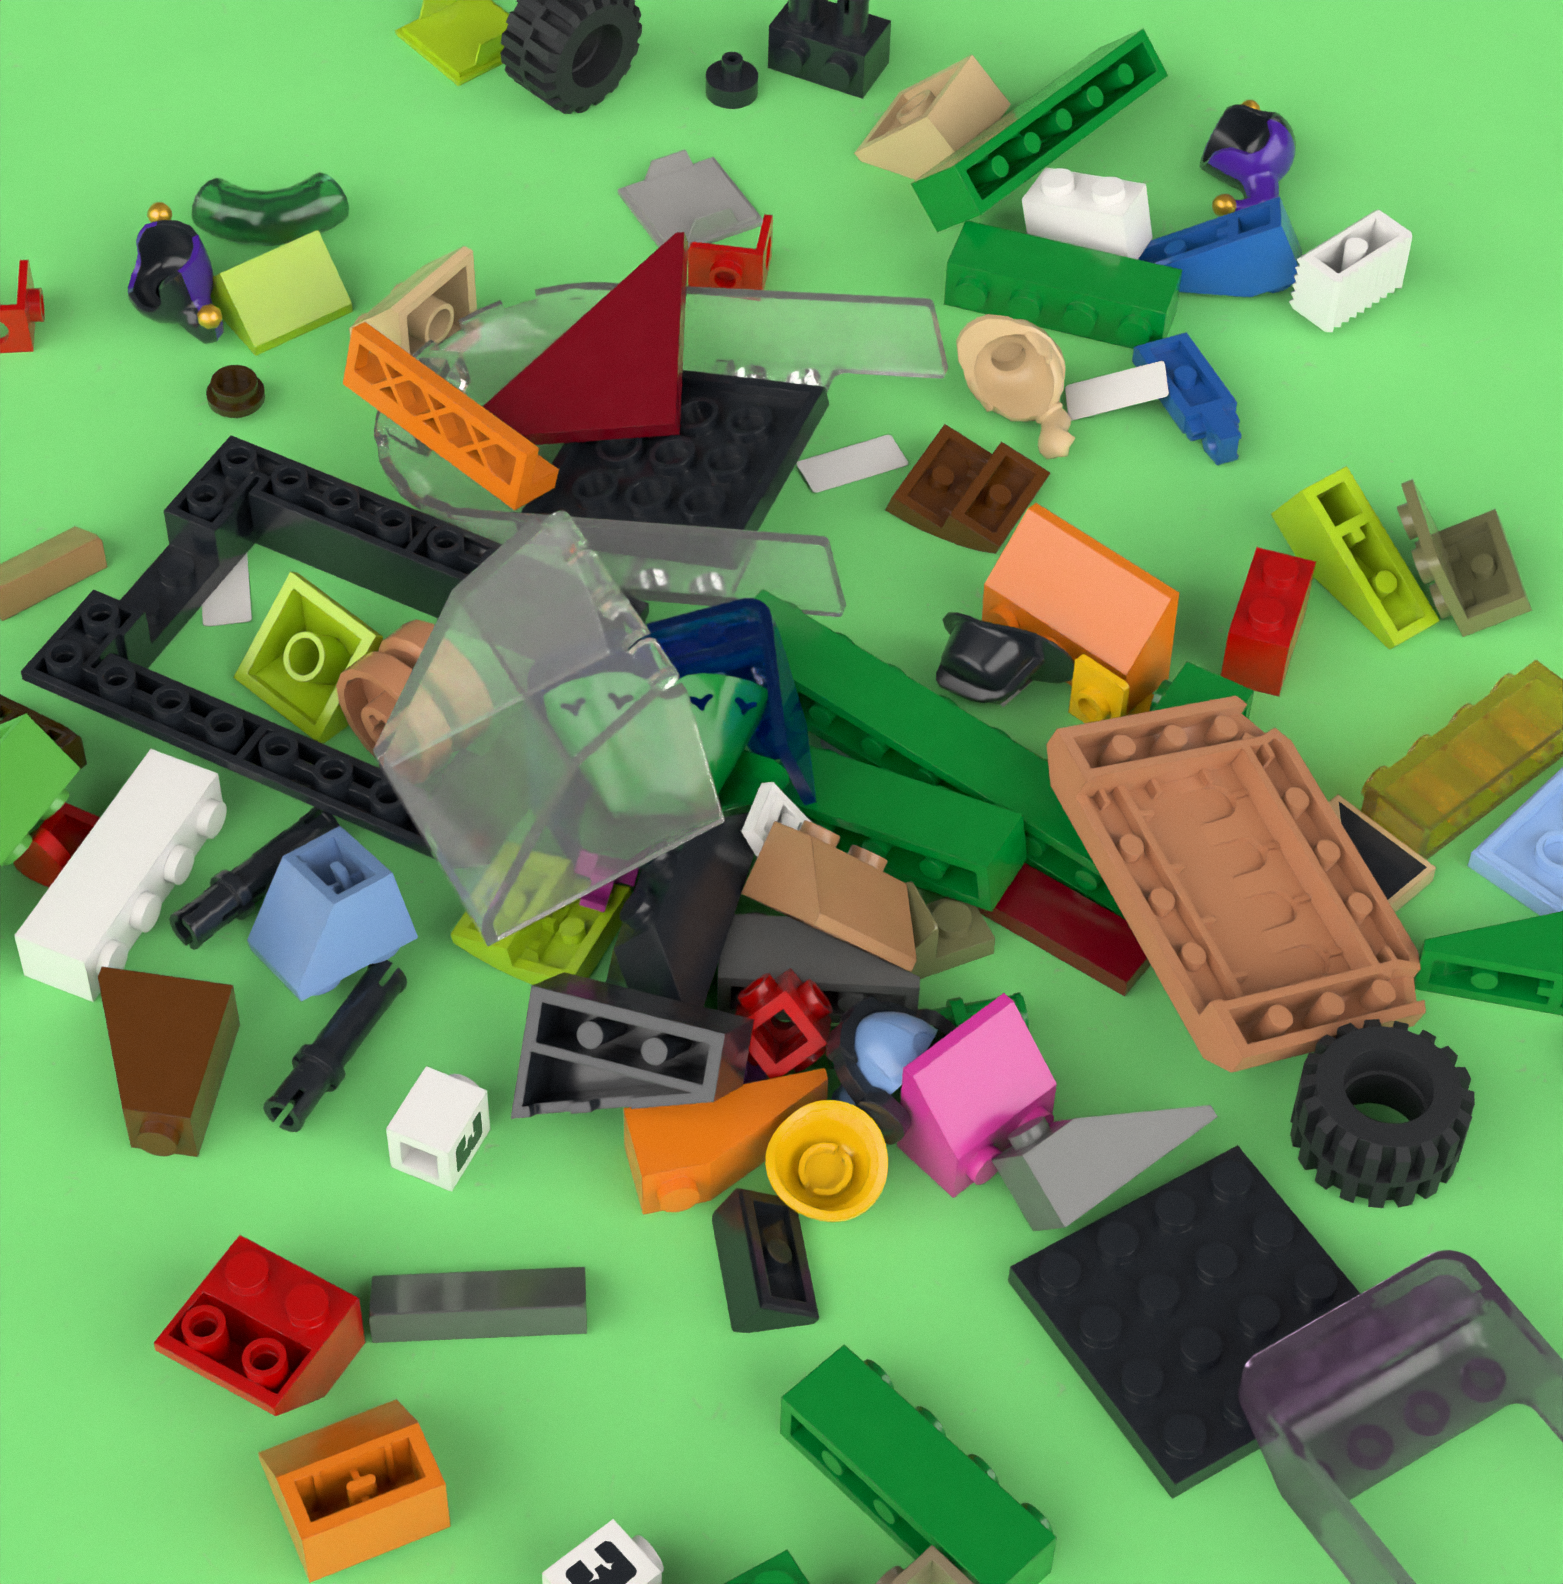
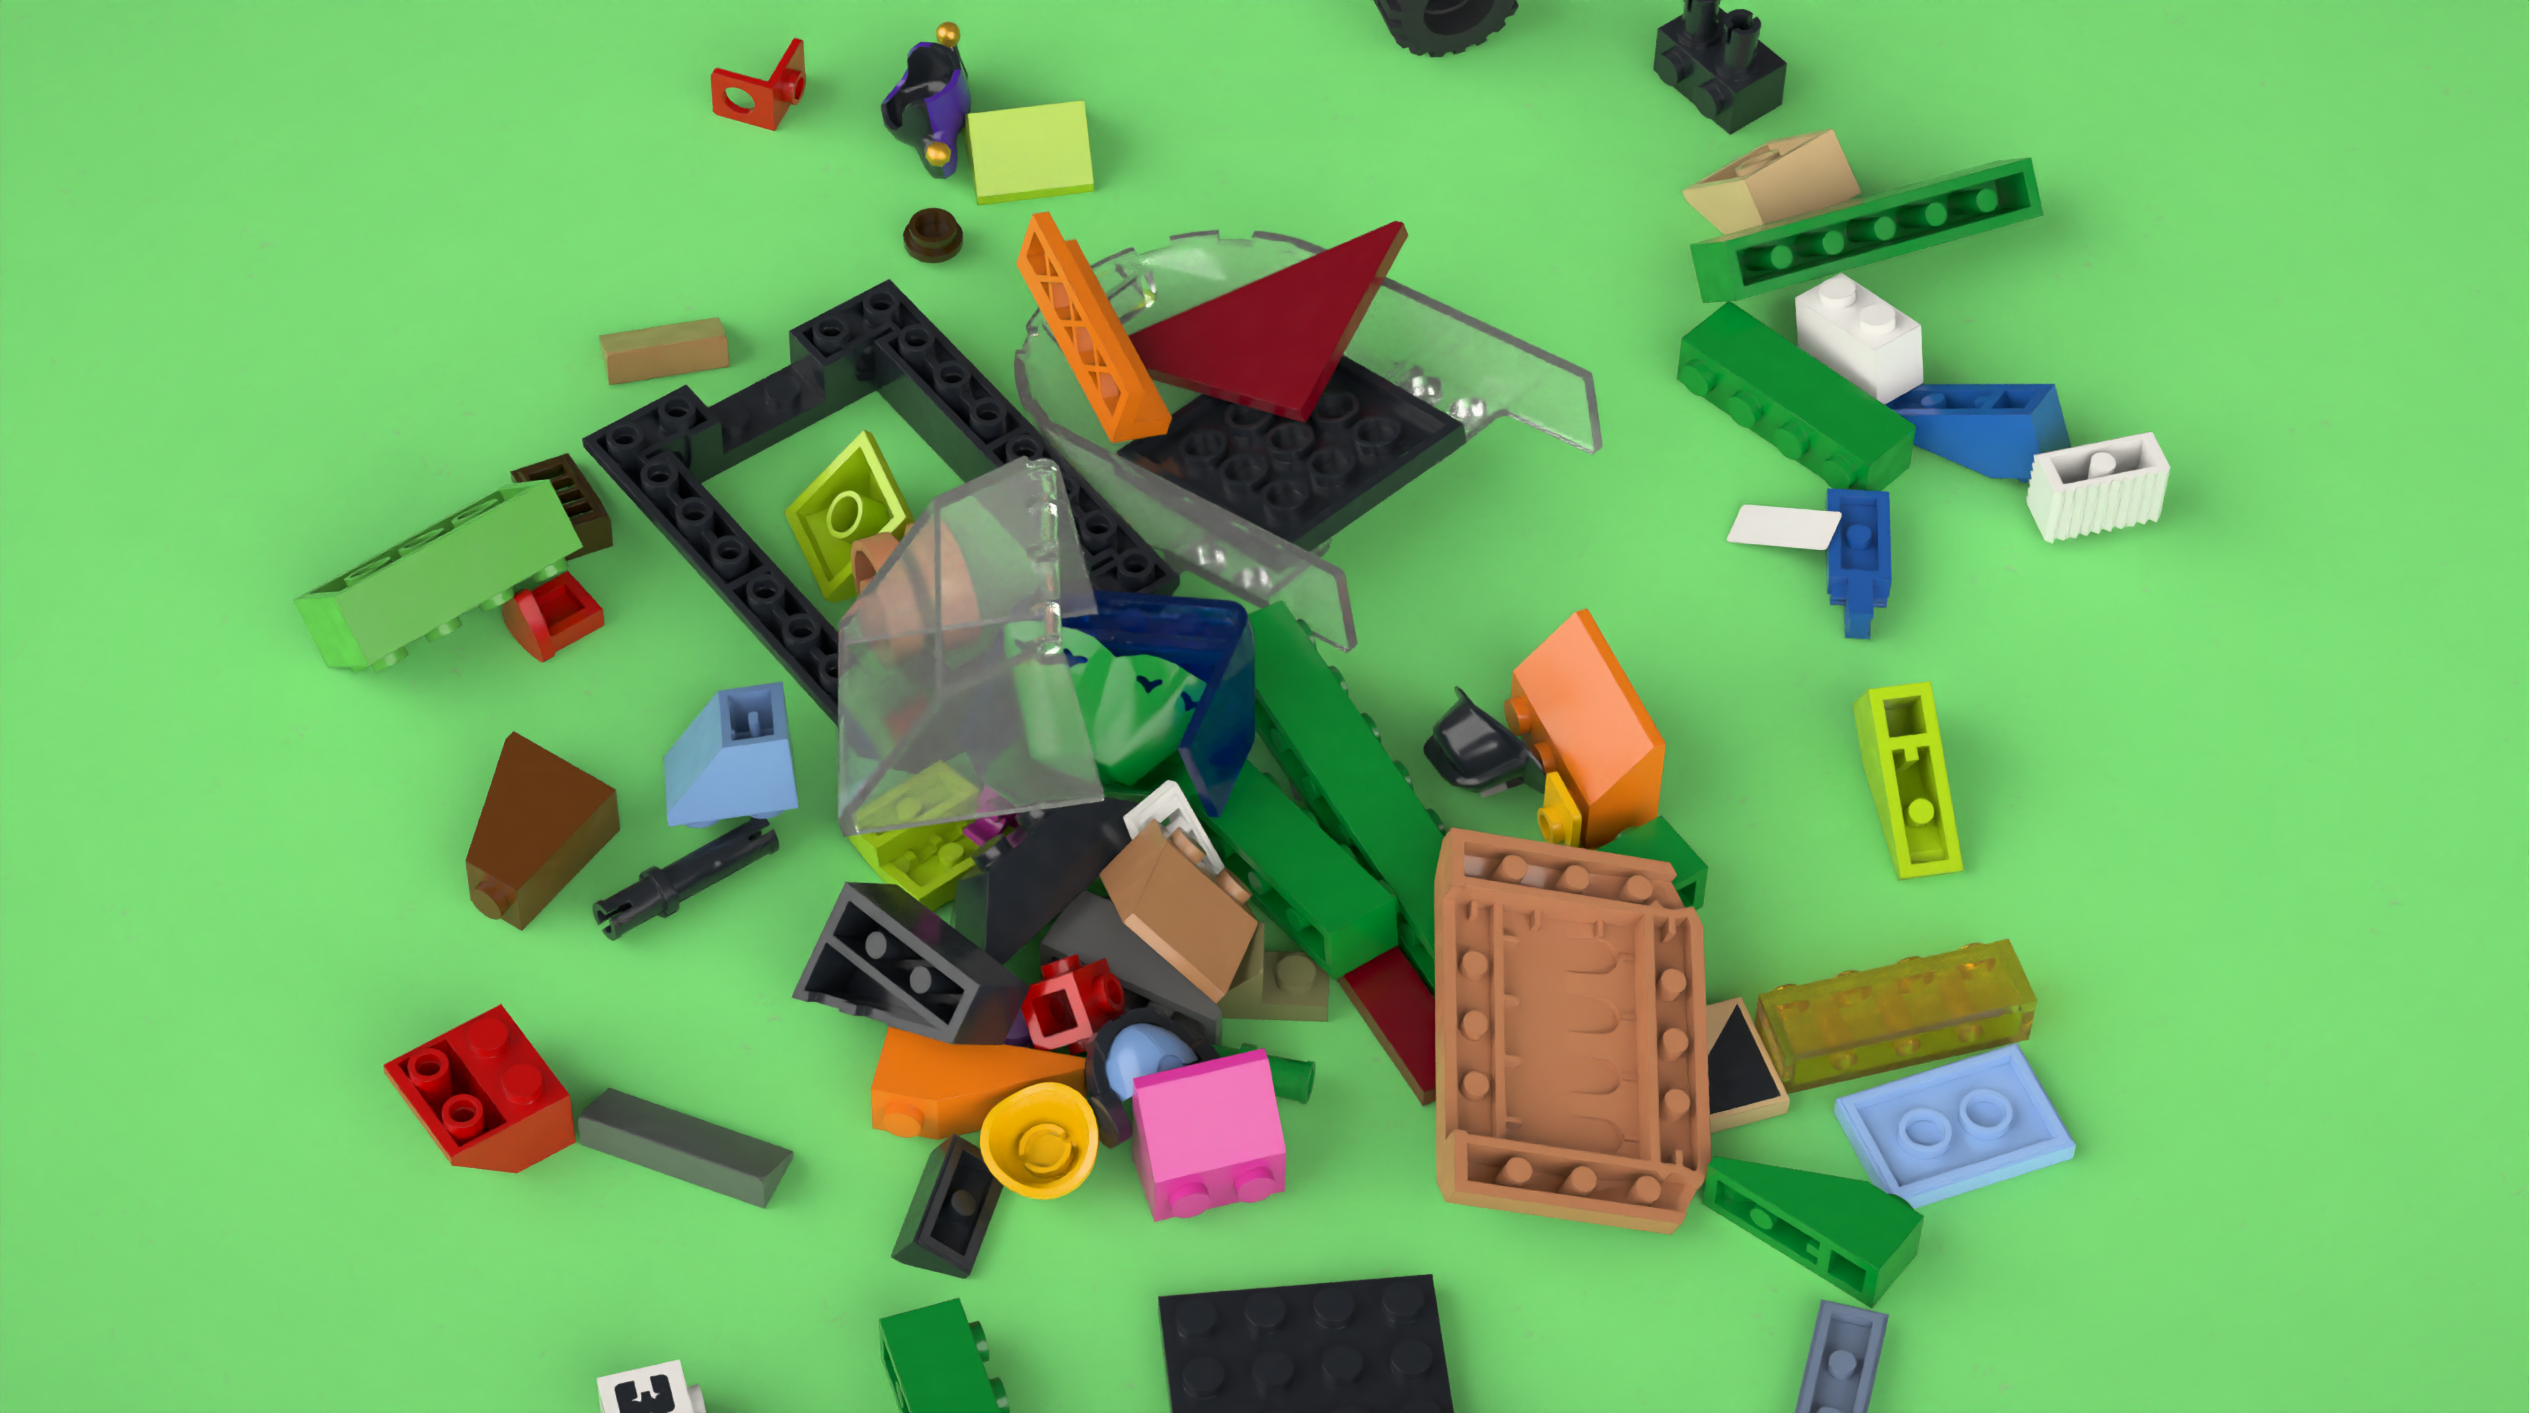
camera: 25 degrees right, 0 degrees up
(121, 874) = (584, 654): white brick -> none
(231, 599) = (823, 438): white sticker -> none
(236, 891) = (677, 708): black pin -> none
(271, 215) = (1060, 68): clear green cylinder -> none
(357, 1489) = (490, 1255): orange slope -> none
(427, 302) = (1136, 214): tan slope -> none
(438, 1128) = (731, 982): white brick -> none
(689, 200) = (1483, 189): light grey piece -> none
(731, 82) = (1601, 75): black tile -> none
(731, 265) = (1482, 275): red bracket -> none
(852, 463) = (1484, 509): white sticker -> none
(967, 491) = (1572, 568): reddish brown slope -> none
(1019, 375) = (1685, 476): tan piece -> none
(1077, 1162) = (1273, 1227): slope -> none
(1249, 153) = (2082, 331): piece -> none
(1268, 621) = (1777, 807): red brick -> none
(1375, 1156) = (1585, 1251): black tyre -> none
(1469, 563) = (2004, 828): olive bracket -> none

